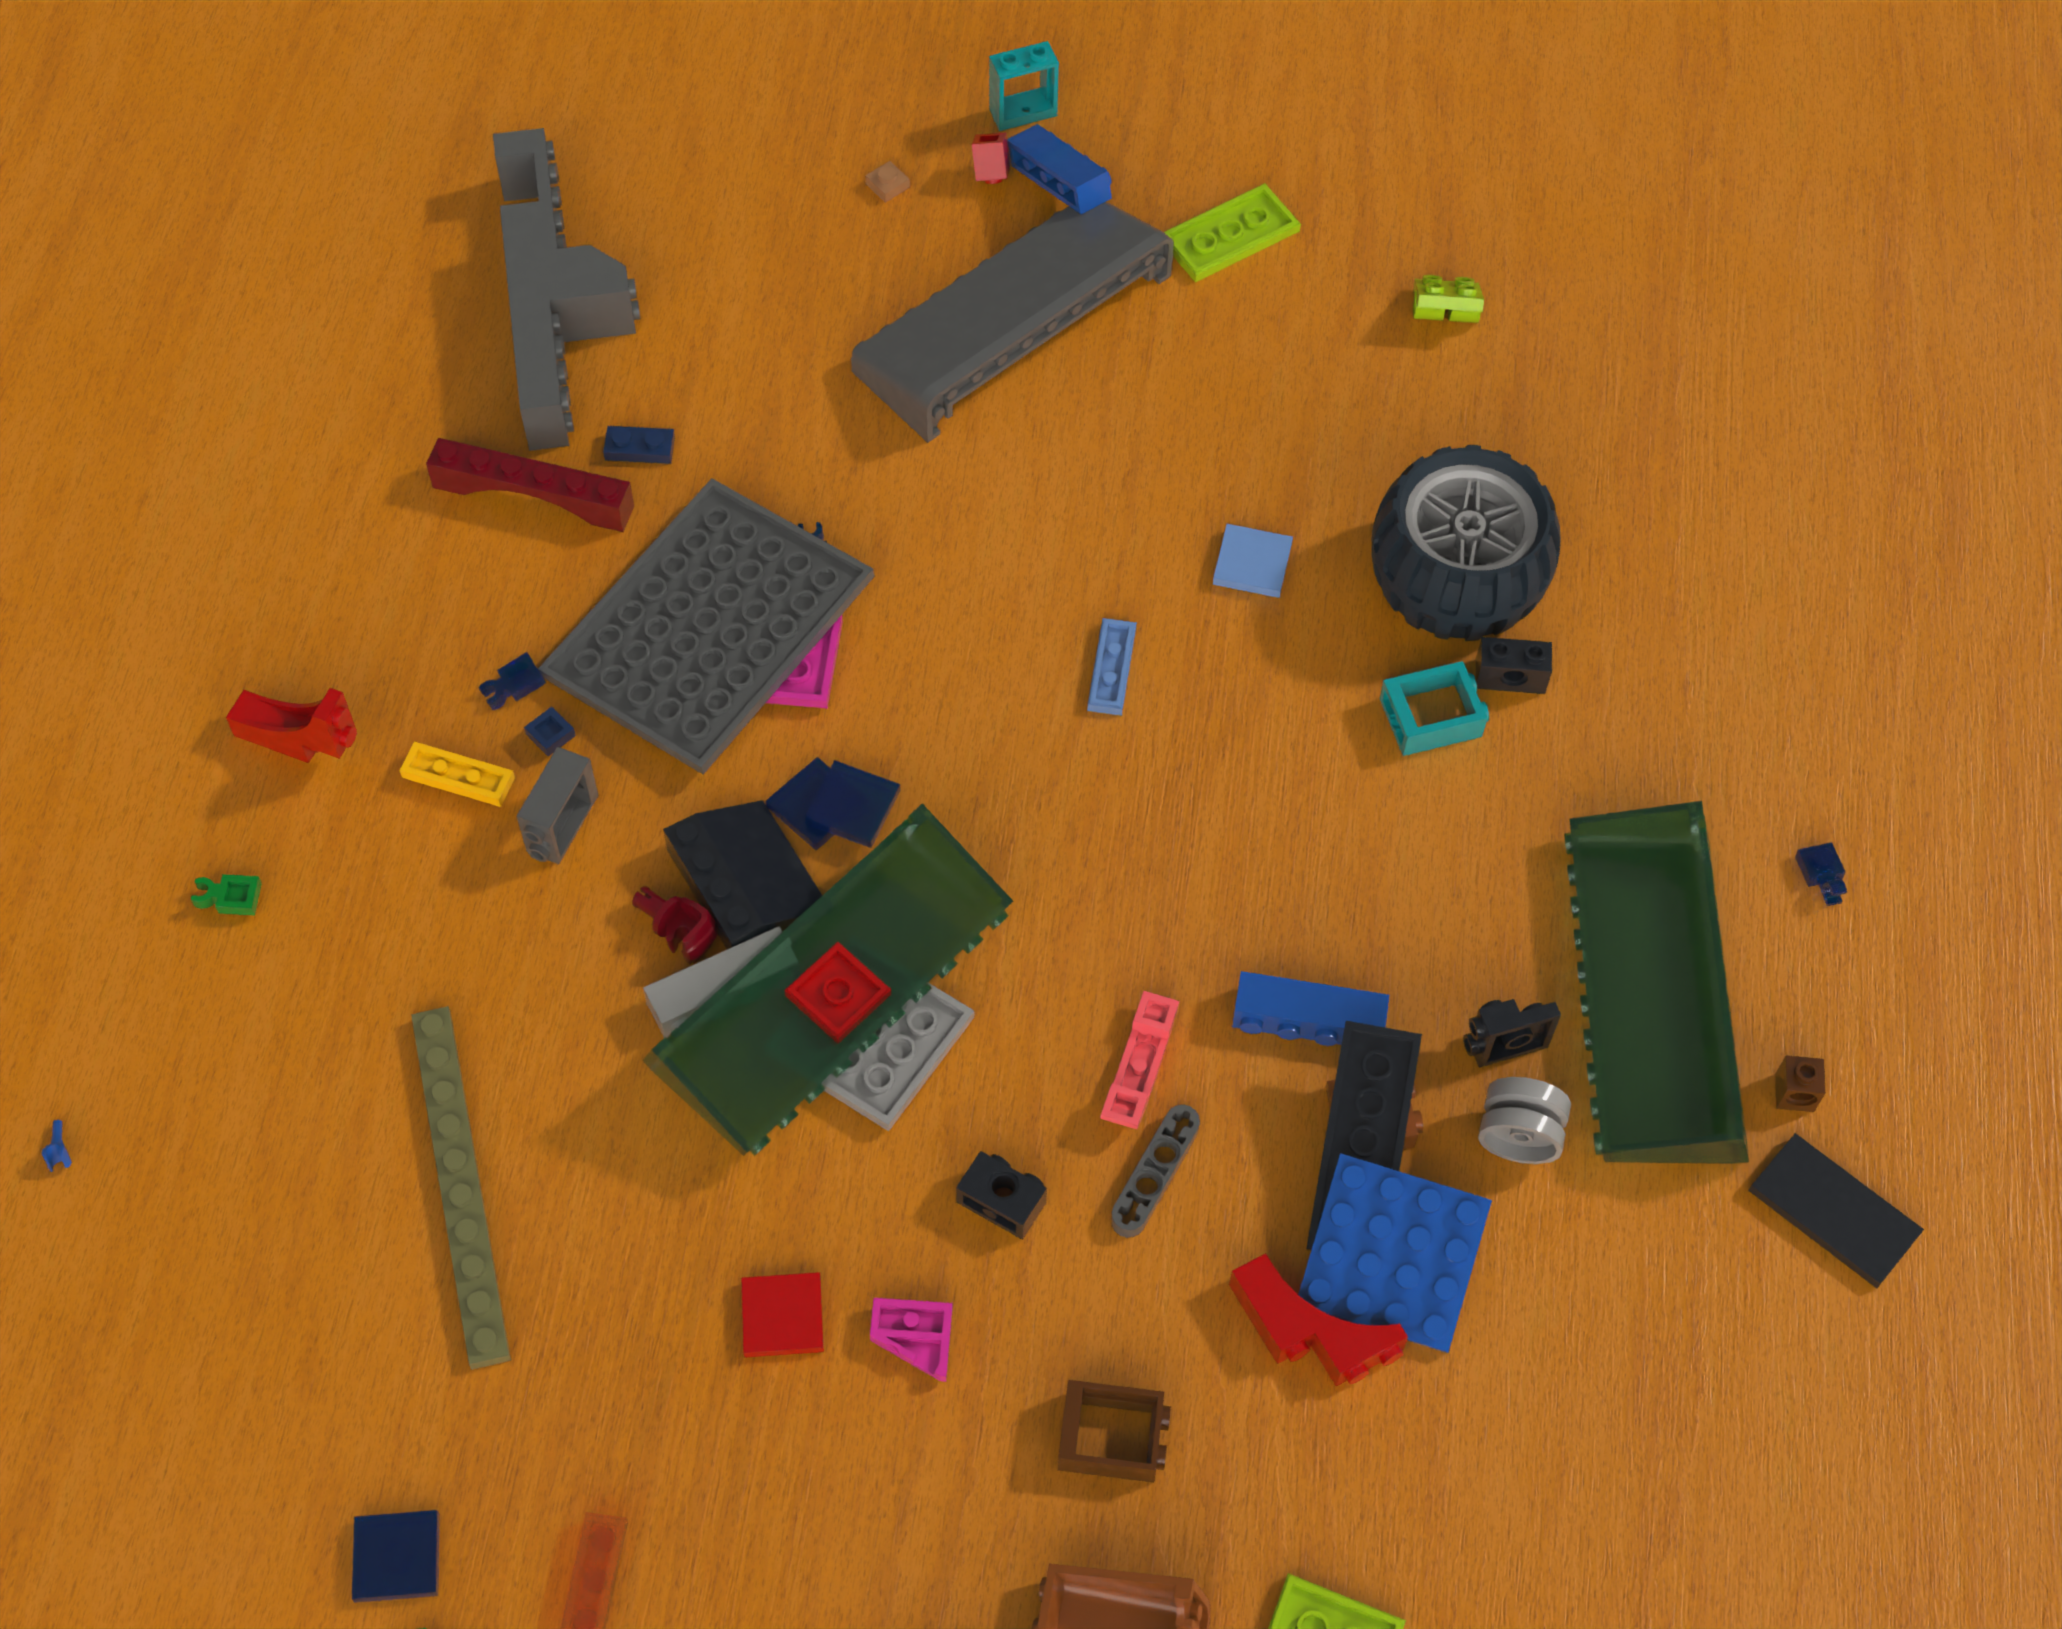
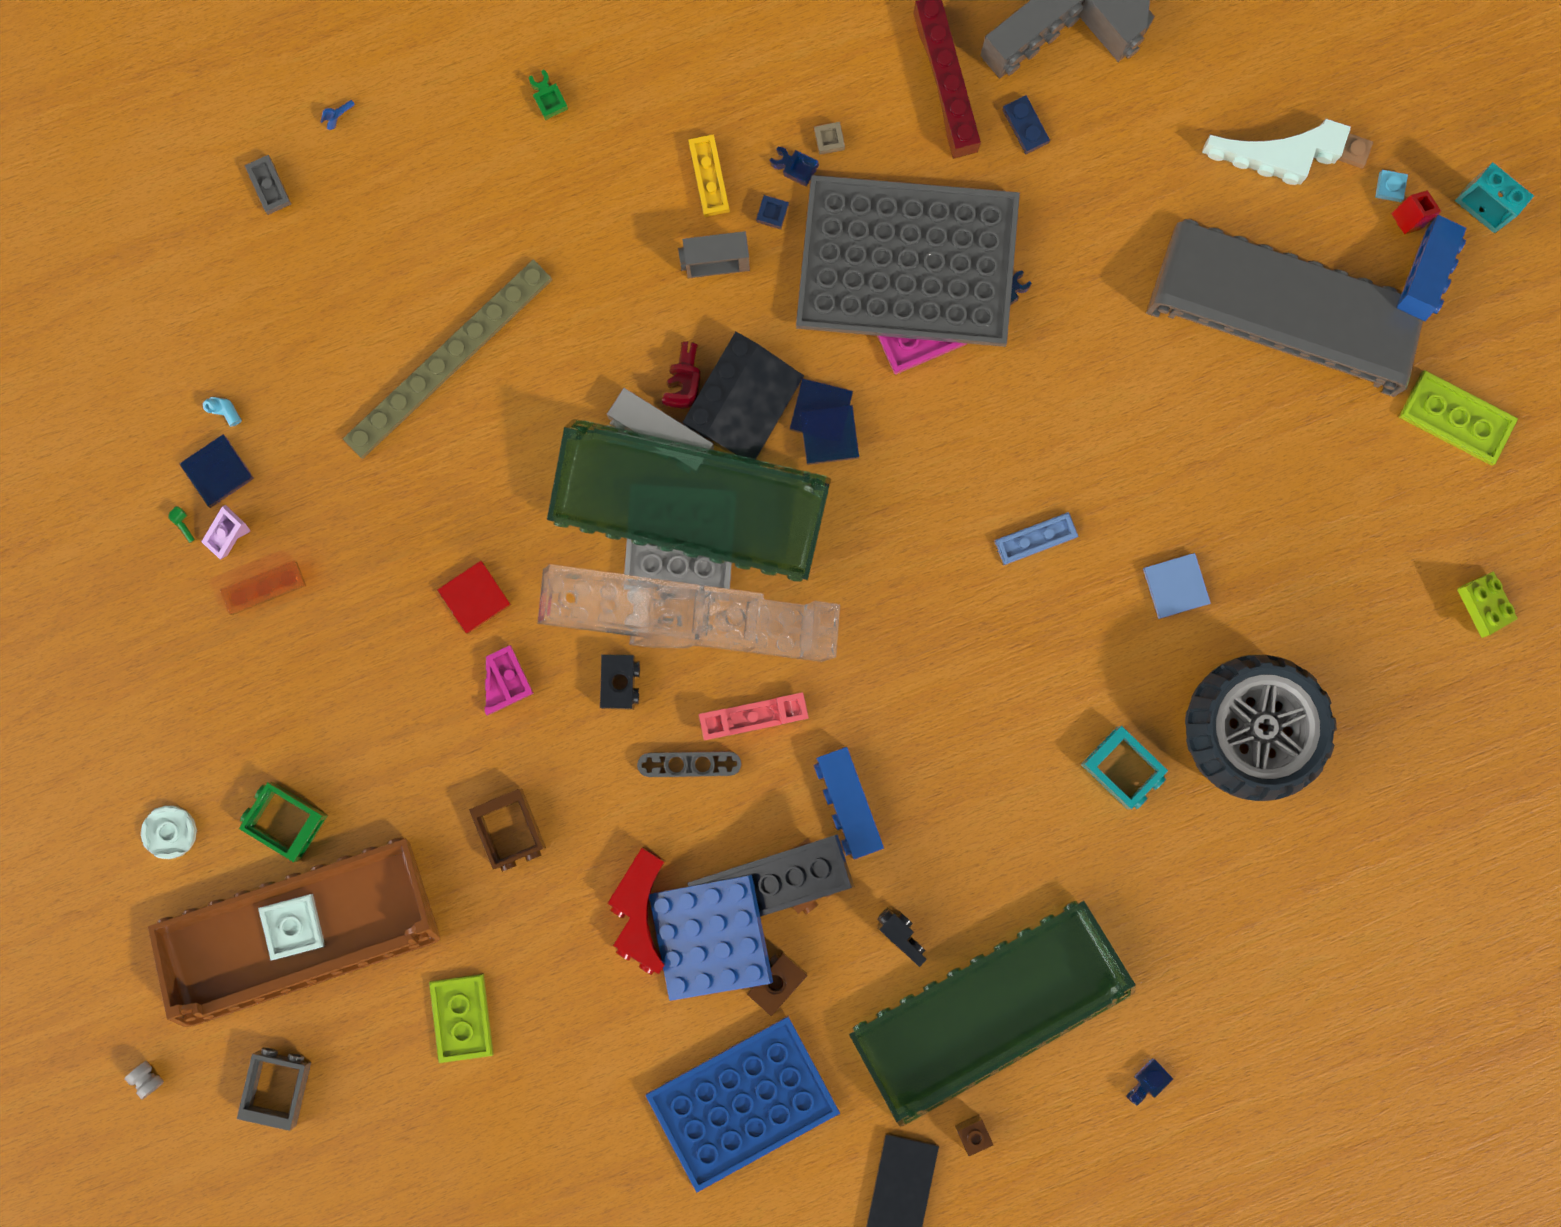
camera: 60 degrees right, 25 degrees up
(78, 1277) = (268, 184): none -> dark grey plate
(294, 727) = (676, 53): red arch -> none
(319, 1499) = (222, 407): none -> medium azure arm
(486, 1581) = (224, 532): none -> lavender slope
(509, 632) = (829, 138): none -> dark tan plate
(837, 992) = (687, 507): red tile -> none
(851, 239) = (1285, 157): none -> light aqua arch
(946, 170) = (1391, 186): none -> medium azure plate
(962, 1055) = (700, 614): none -> clear piece
(1512, 1226) = (792, 976): none -> reddish brown brick
(1513, 665) = (1189, 804): black brick -> none
(1524, 1120) = (843, 975): light grey wheel -> none
(1629, 1336) = (742, 1104): none -> blue plate

